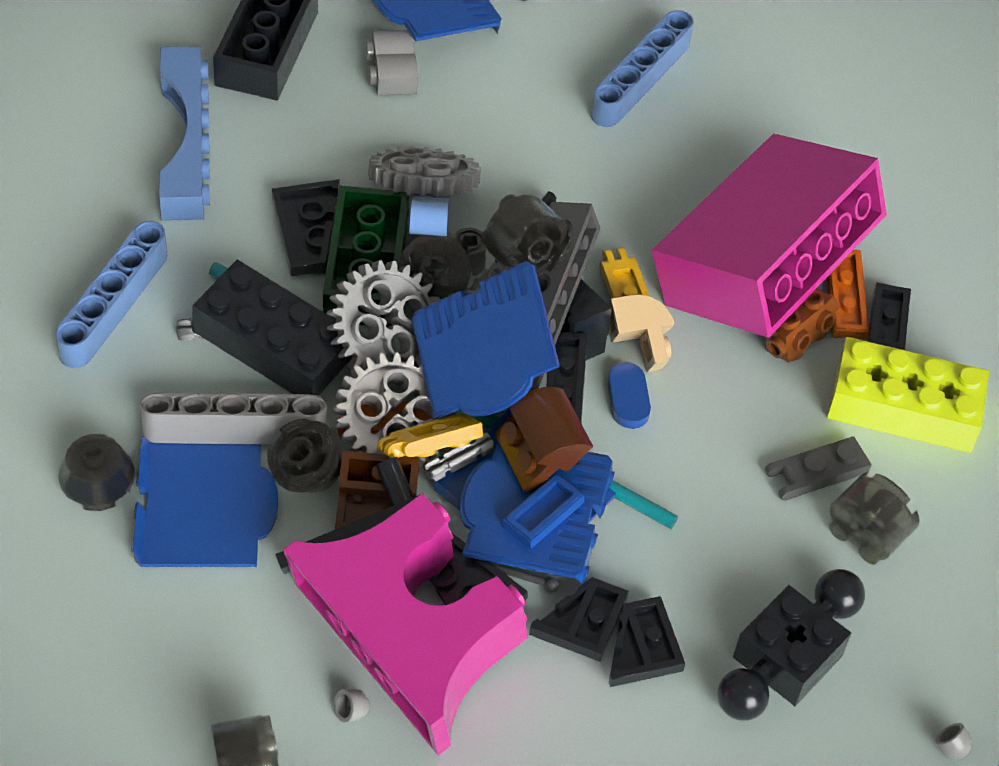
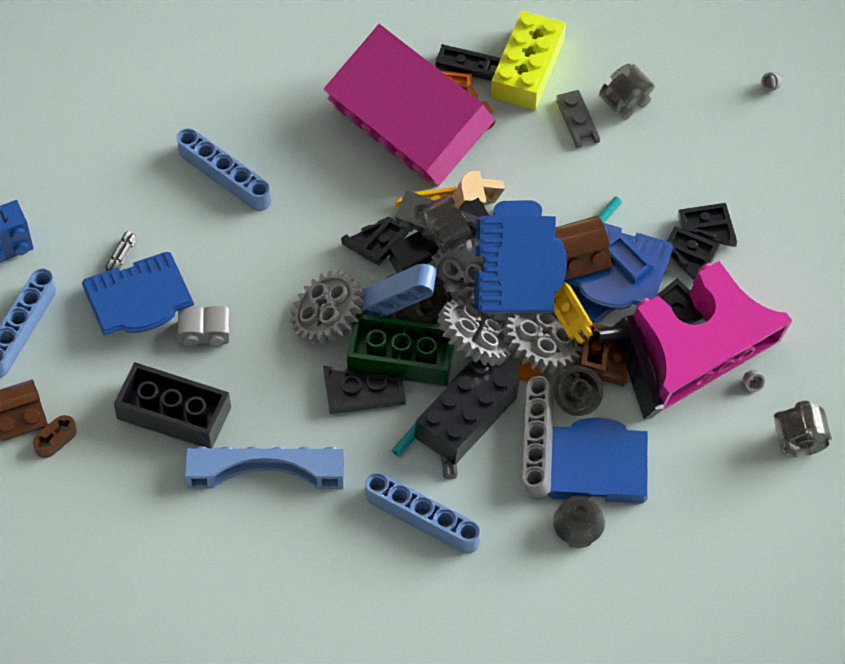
camera: 80 degrees left, 5 degrees up
(791, 645) = (713, 147): black brick -> none

